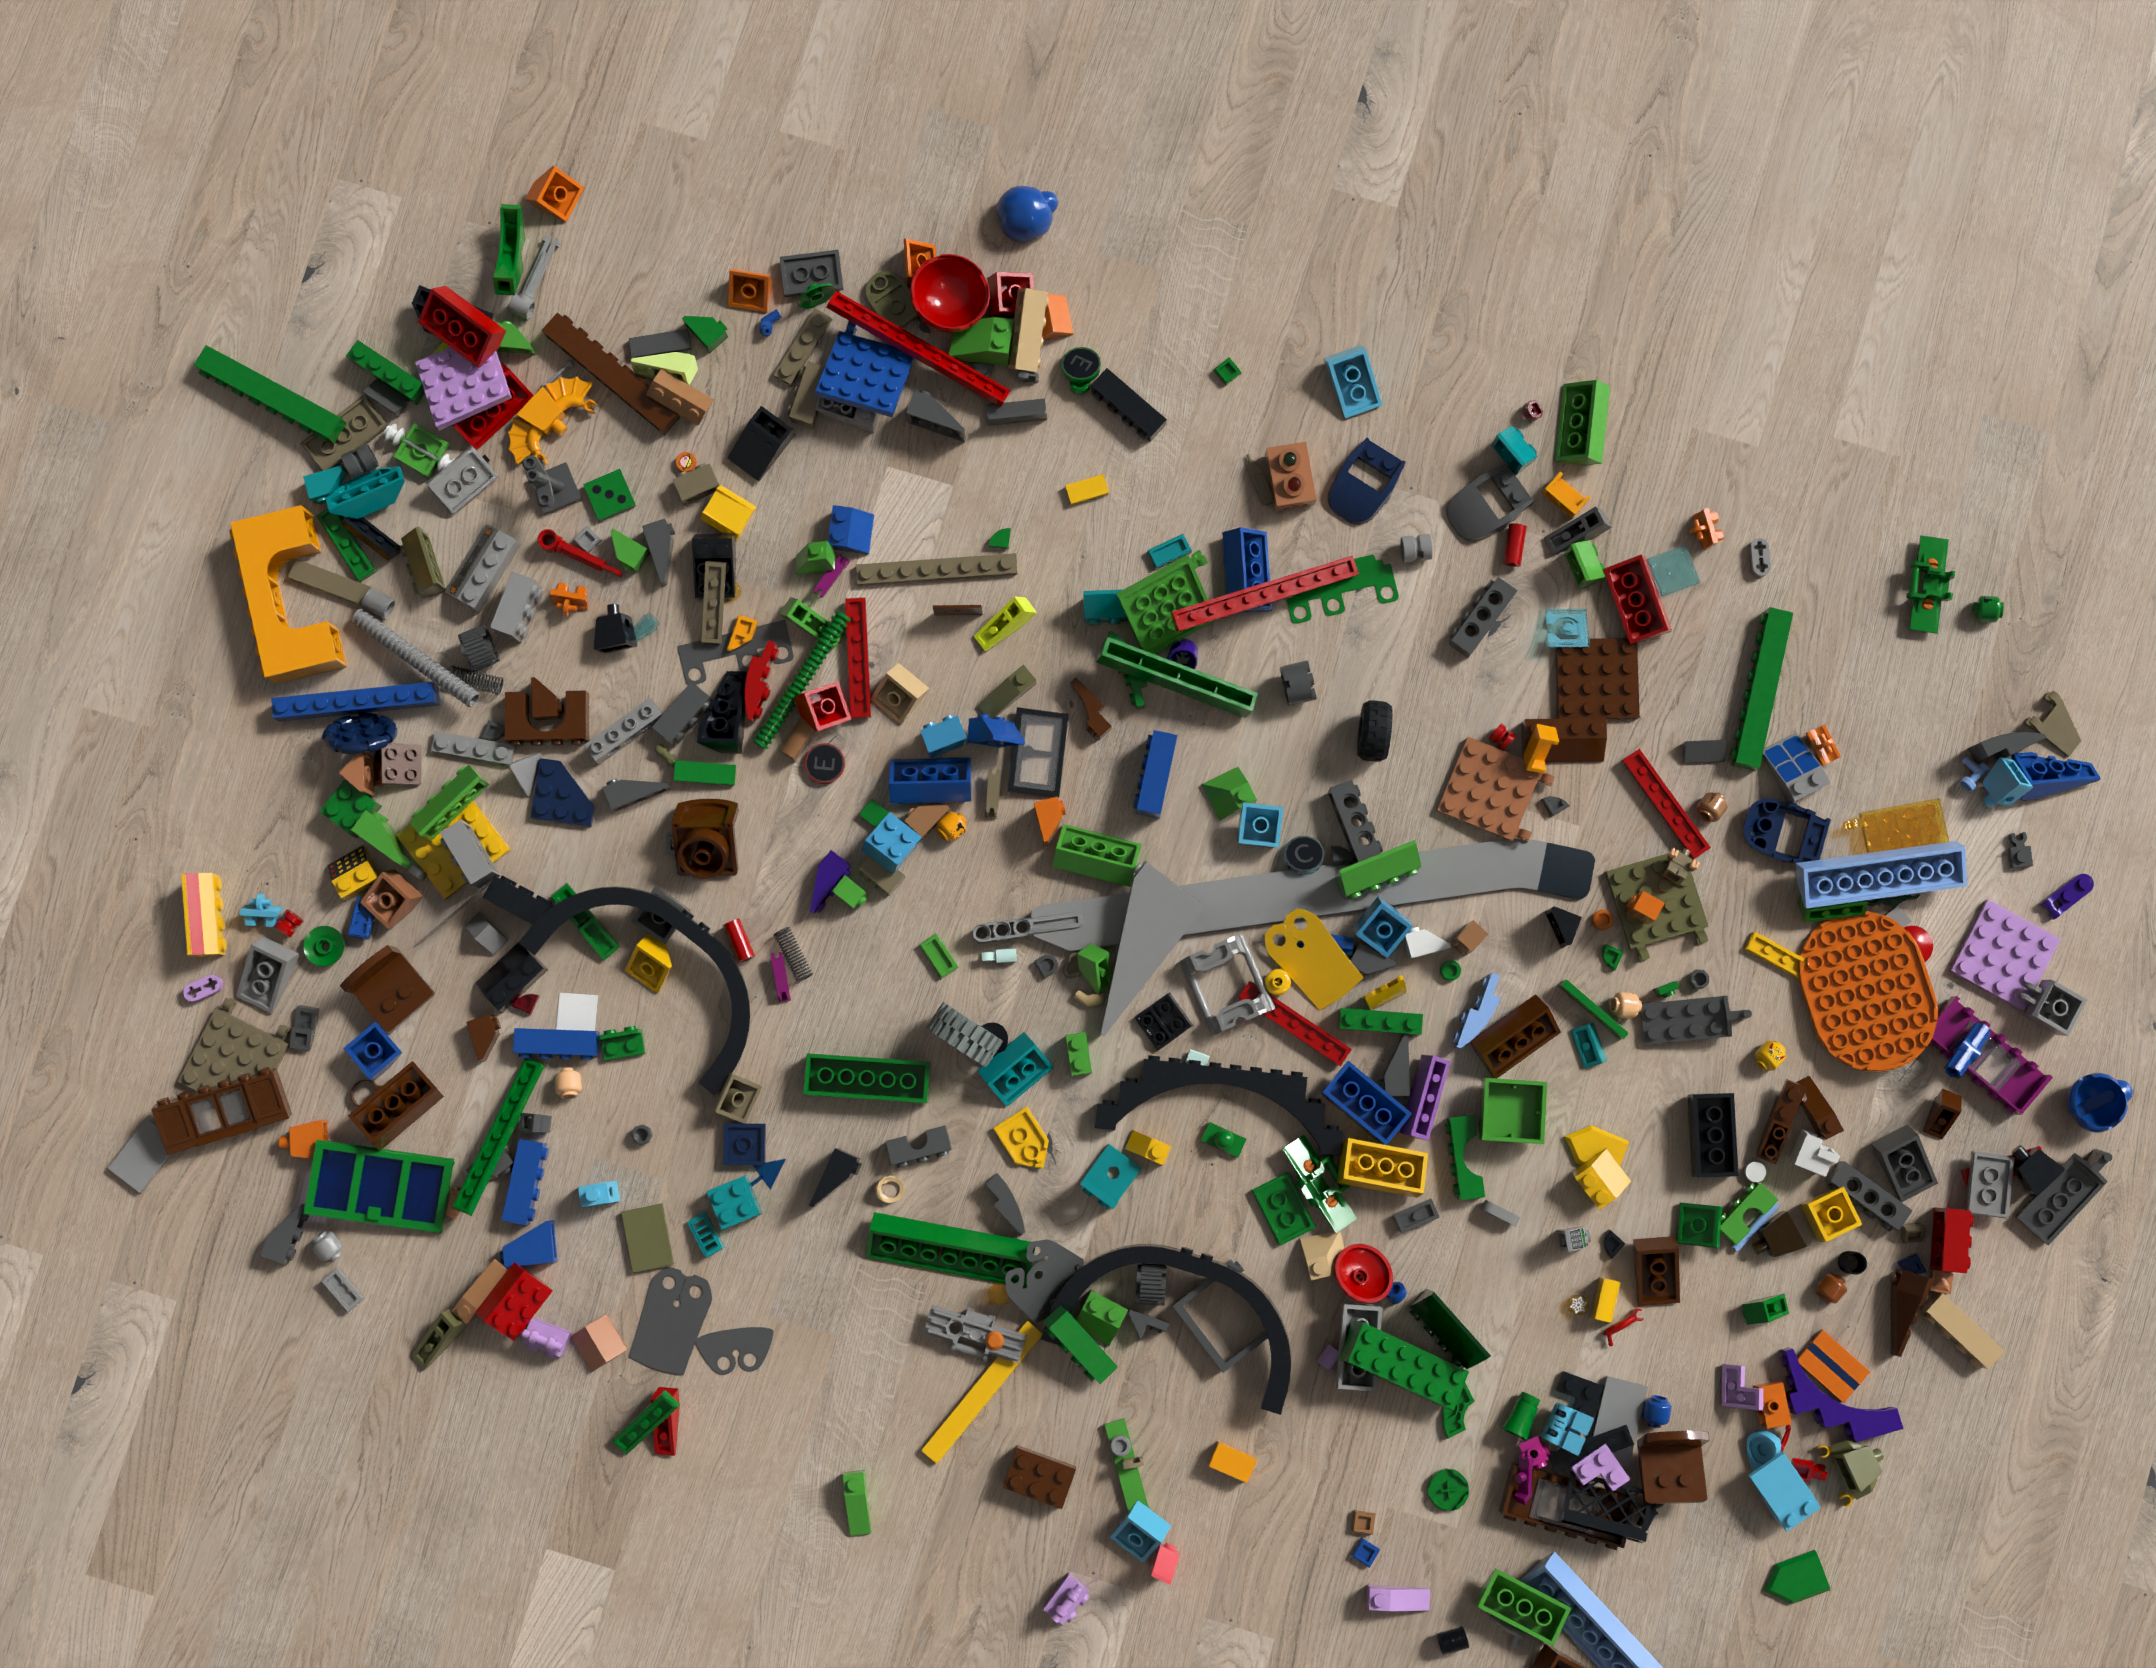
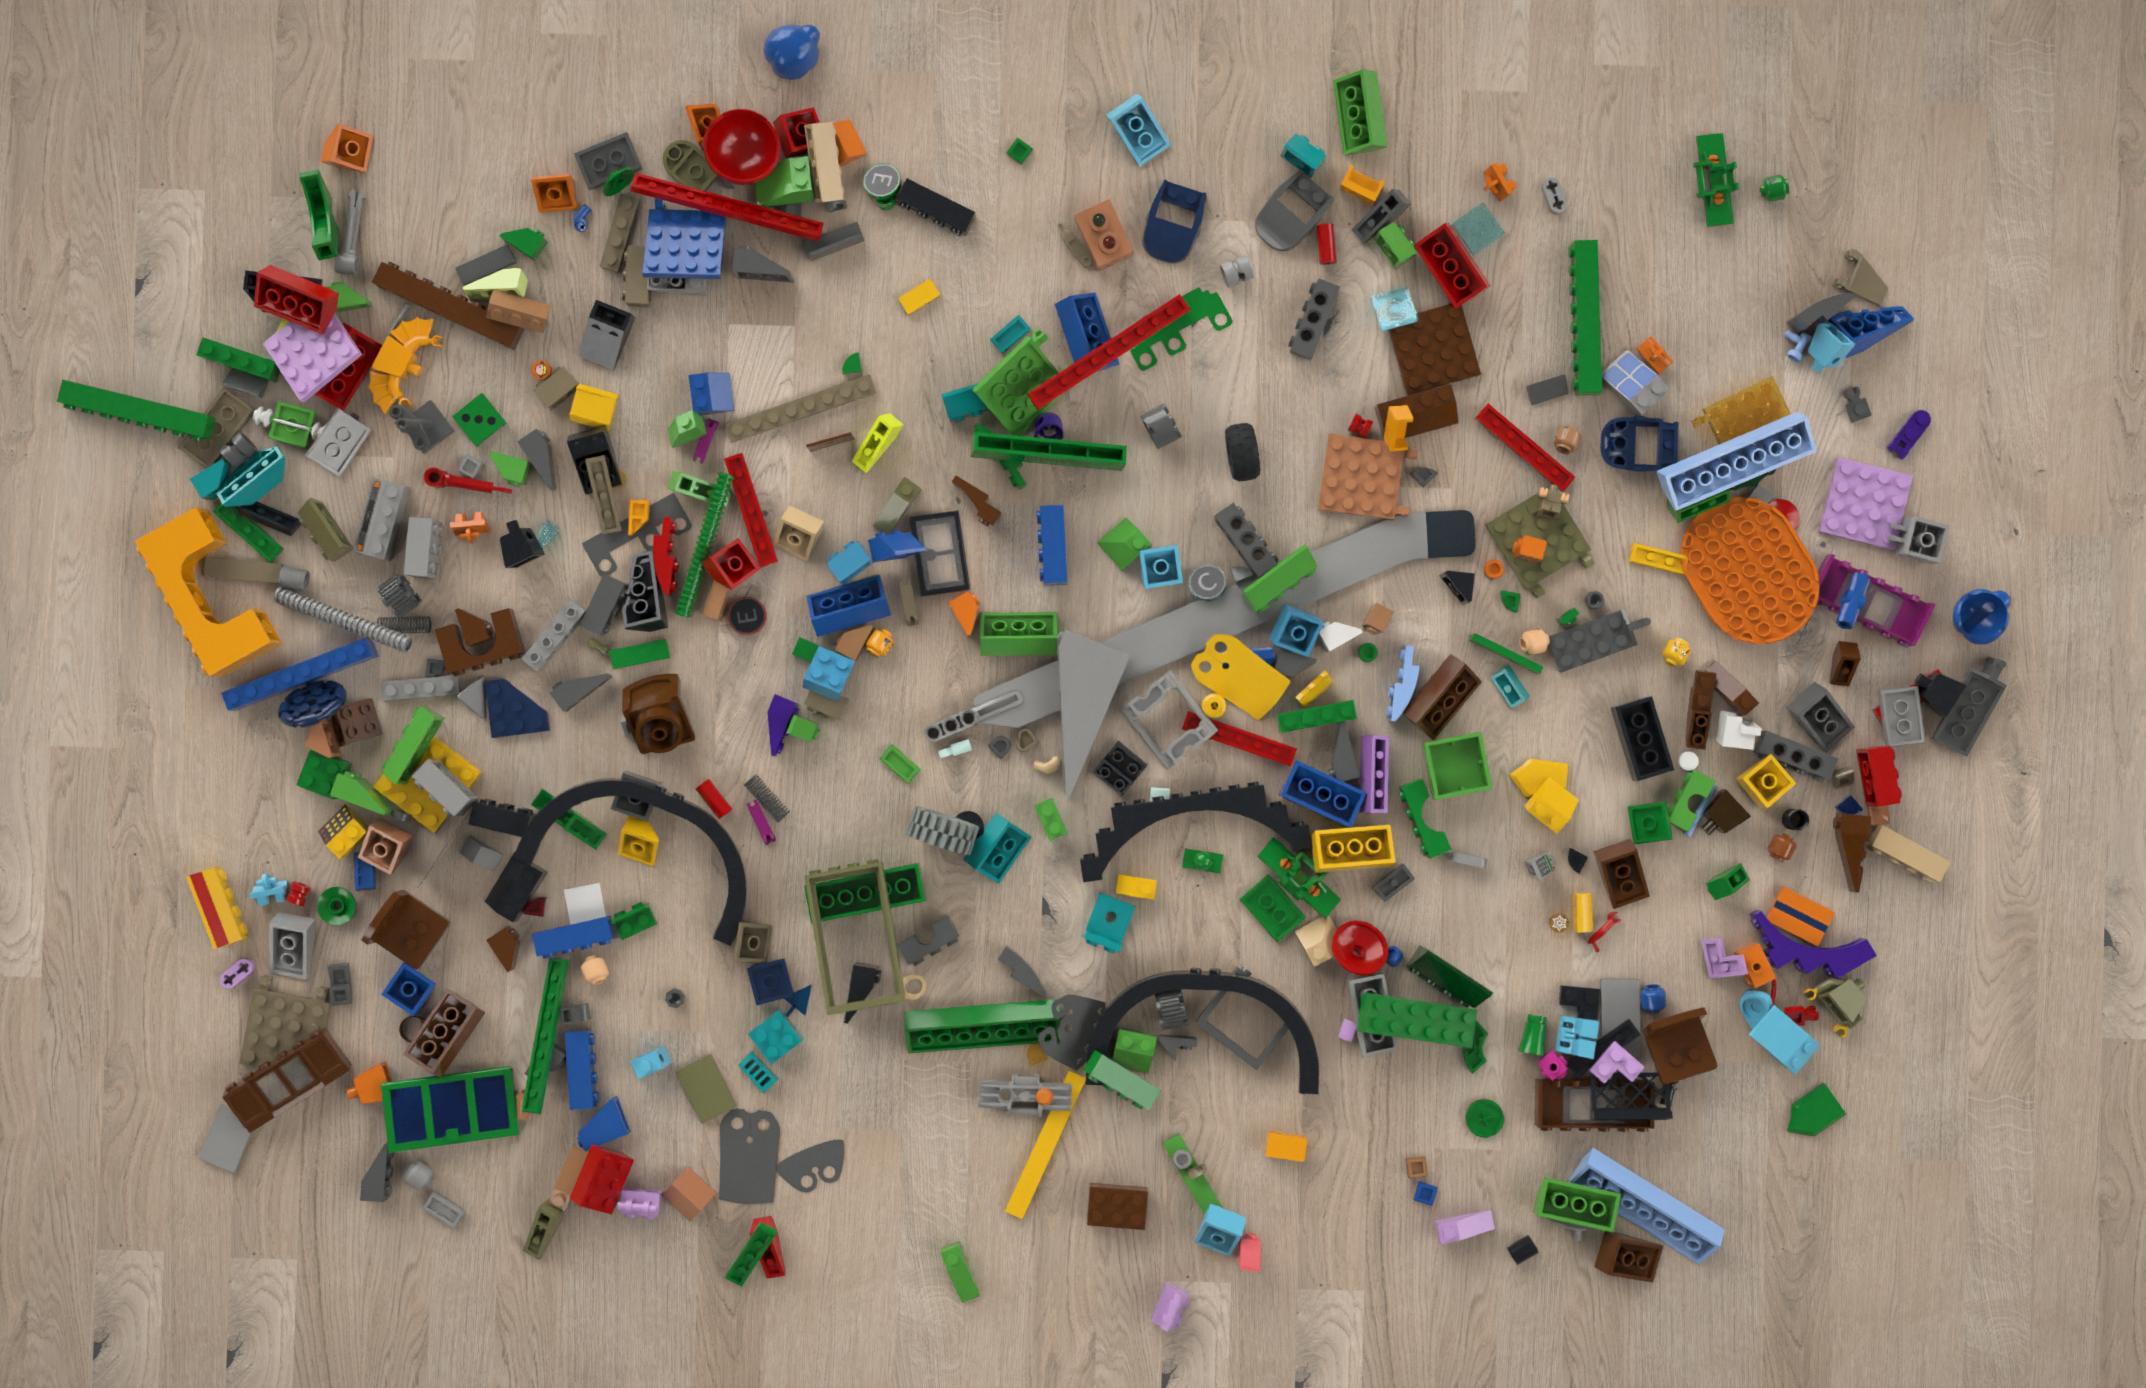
camera: 20 degrees left, 5 degrees up
(844, 1048) = (835, 873): none -> olive door
(1023, 1139) = (1021, 908): yellow tile -> none
(1095, 967) = (1045, 736): bright green slope -> none
(1524, 1479) = (1550, 1092): magenta piece -> none
(1532, 410) = (1310, 113): dark red tile -> none

